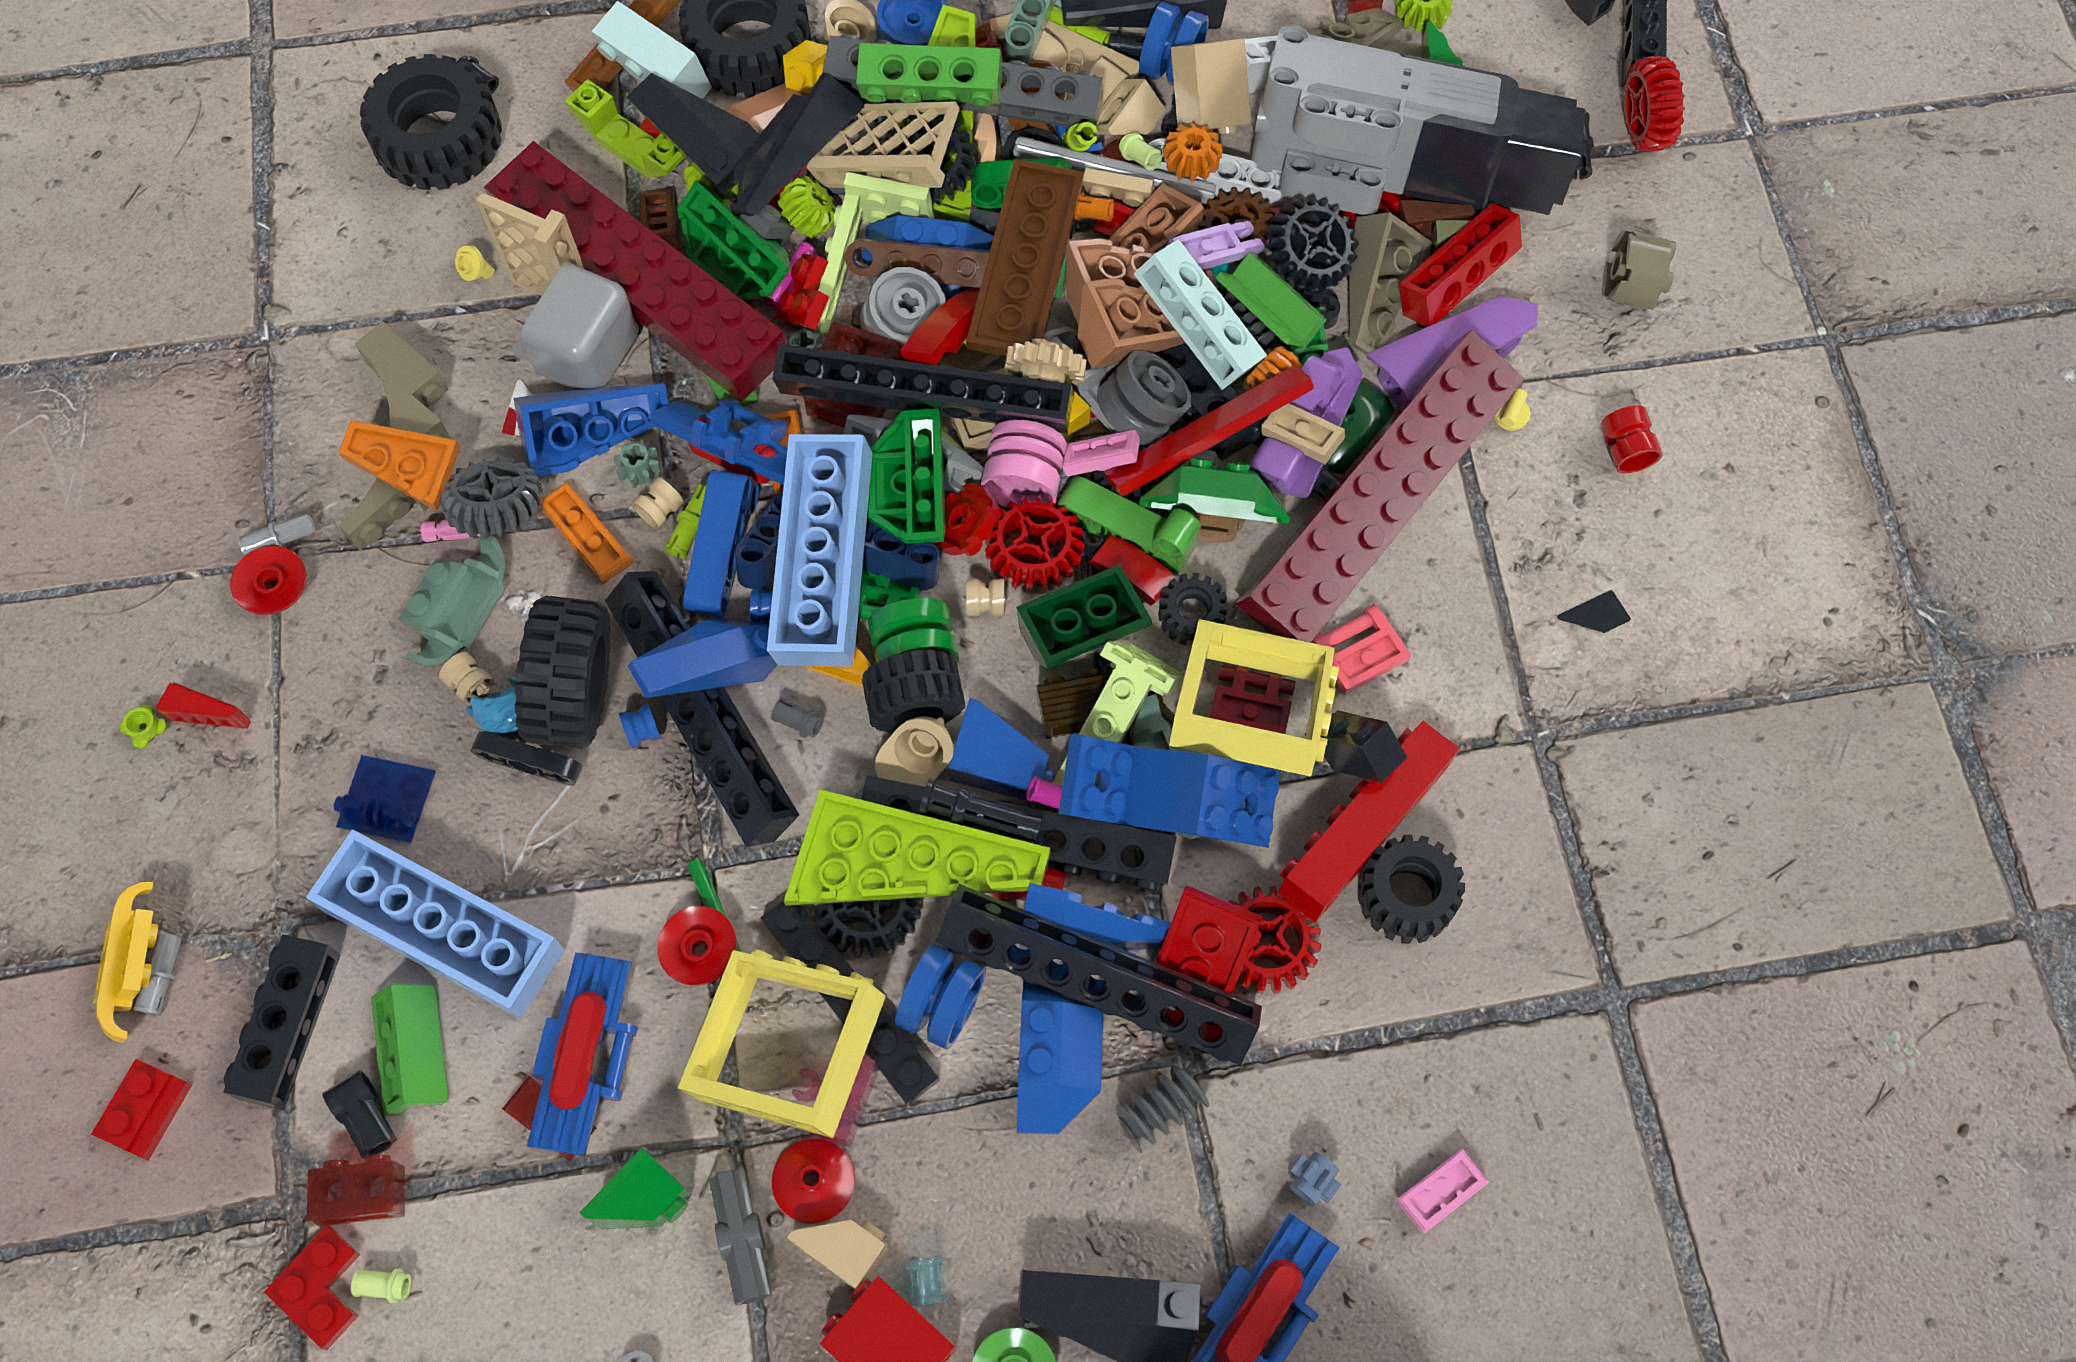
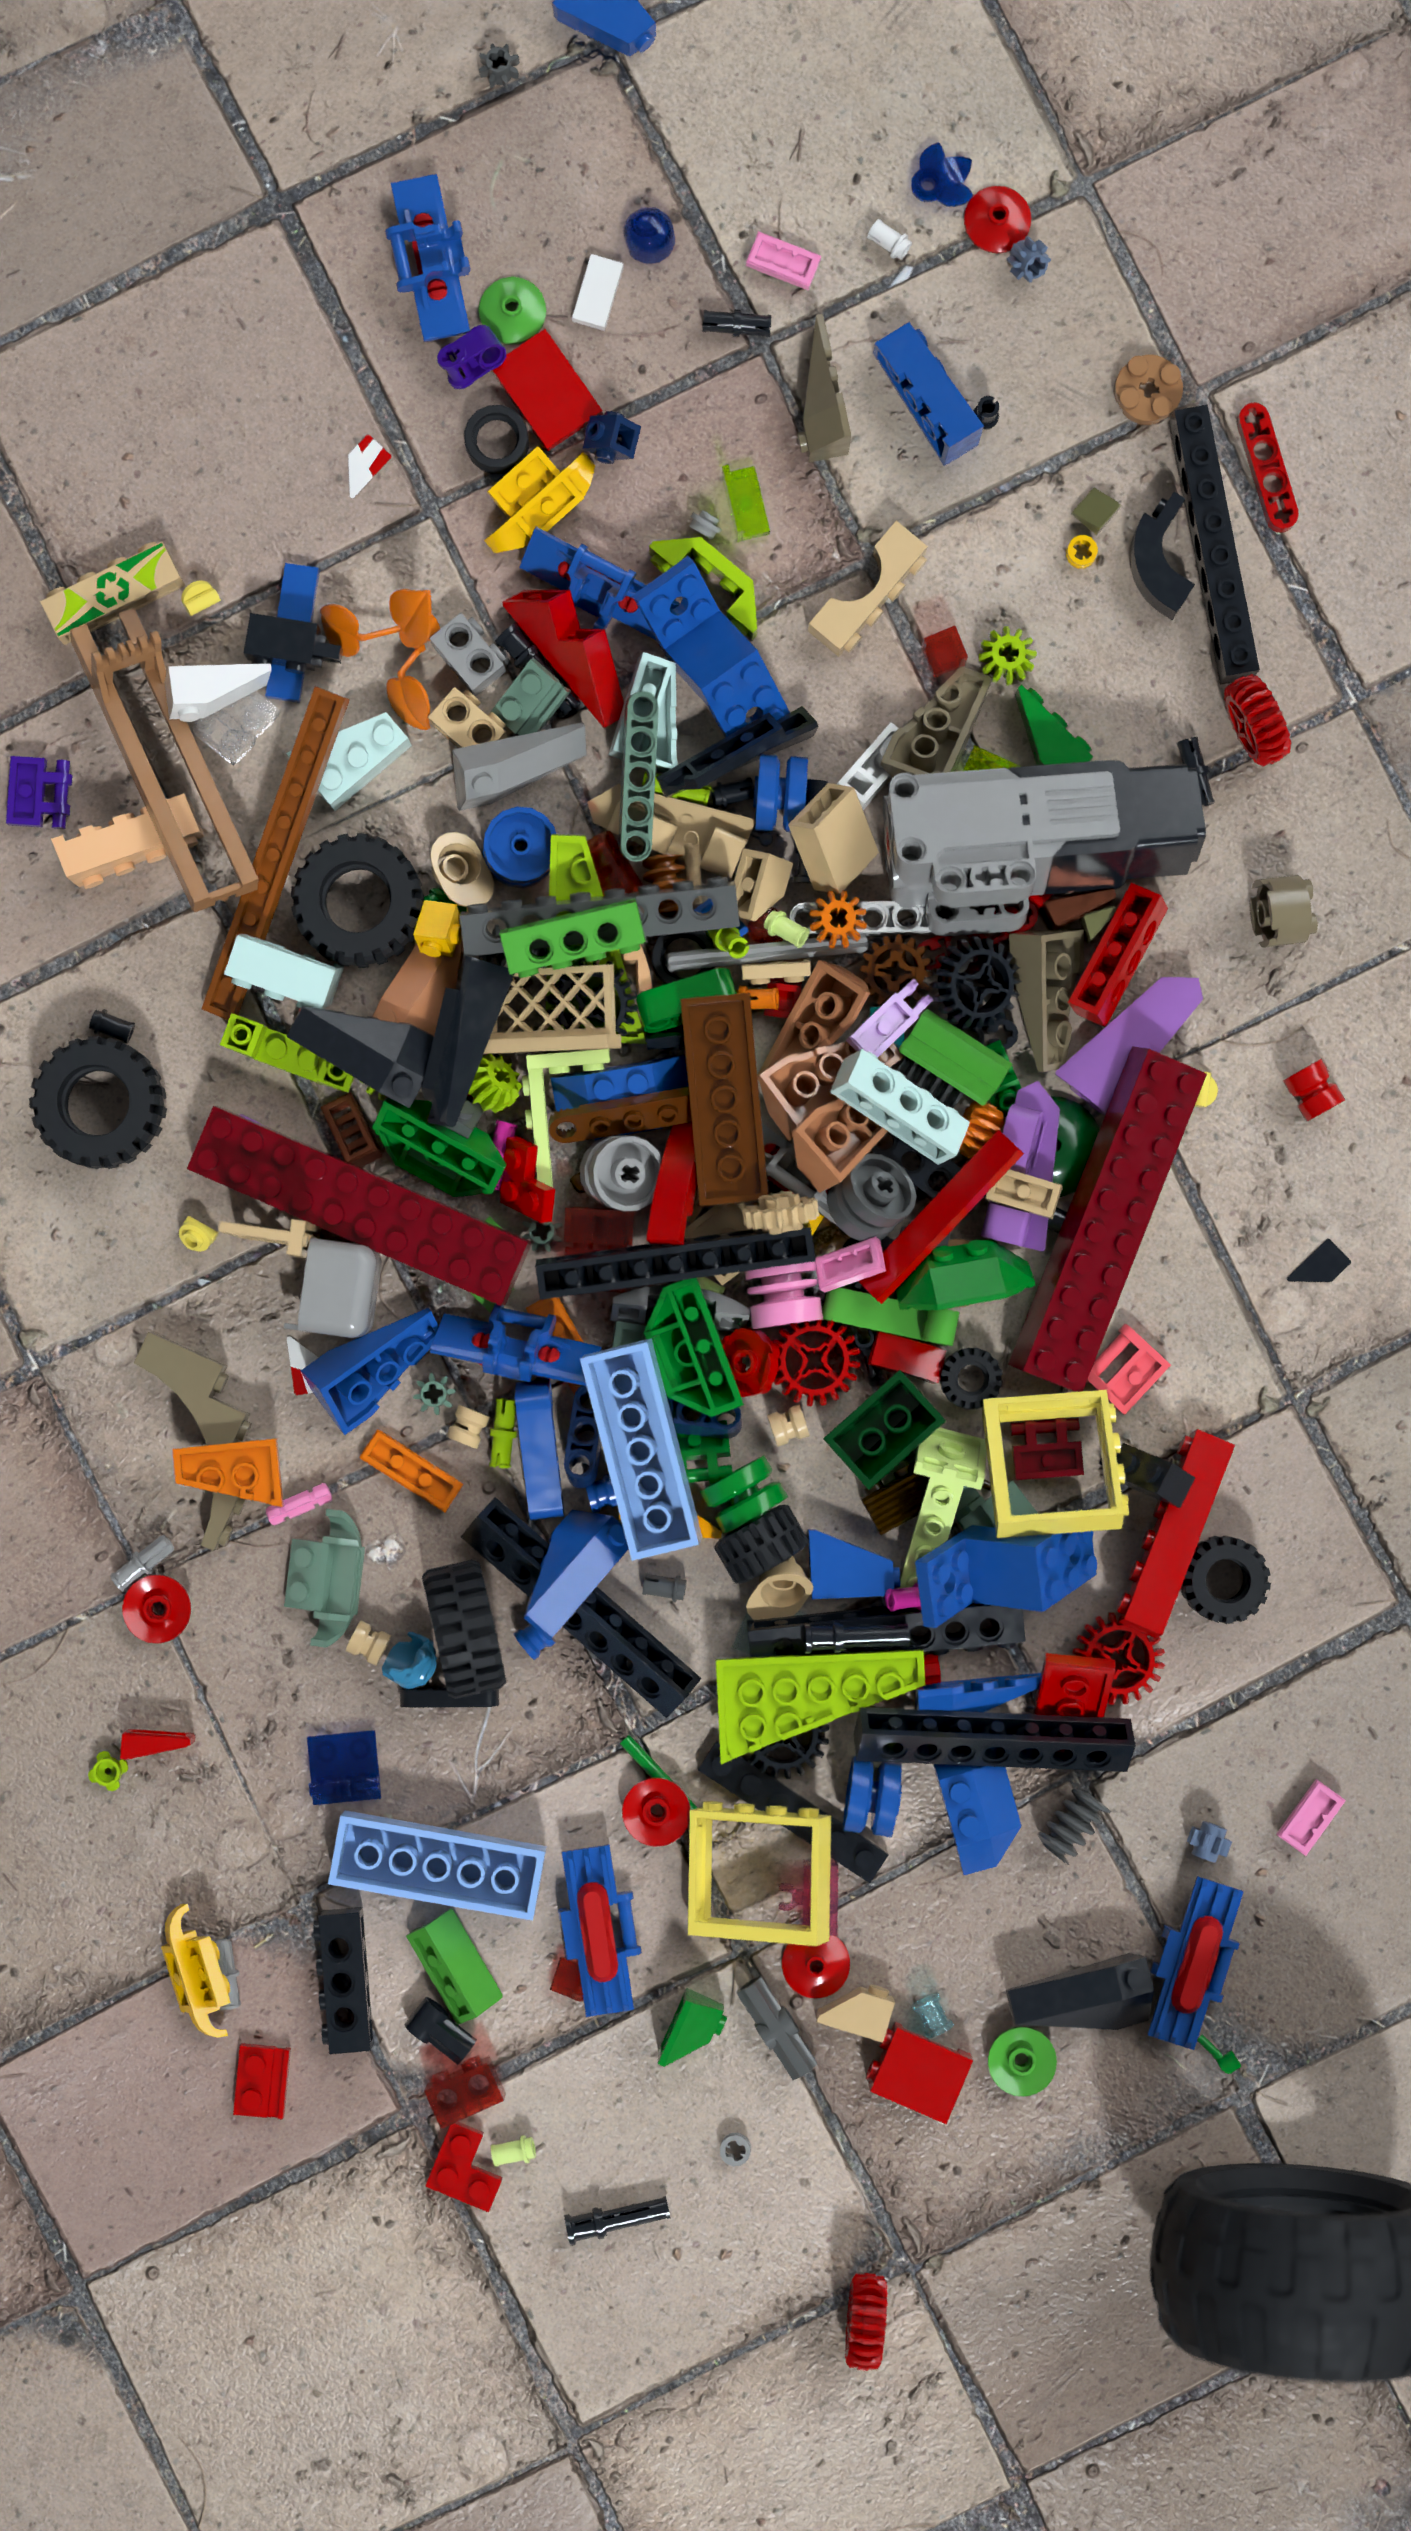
camera: 20 degrees left, 20 degrees up
(491, 497) = (343, 1456): dark grey gear -> none

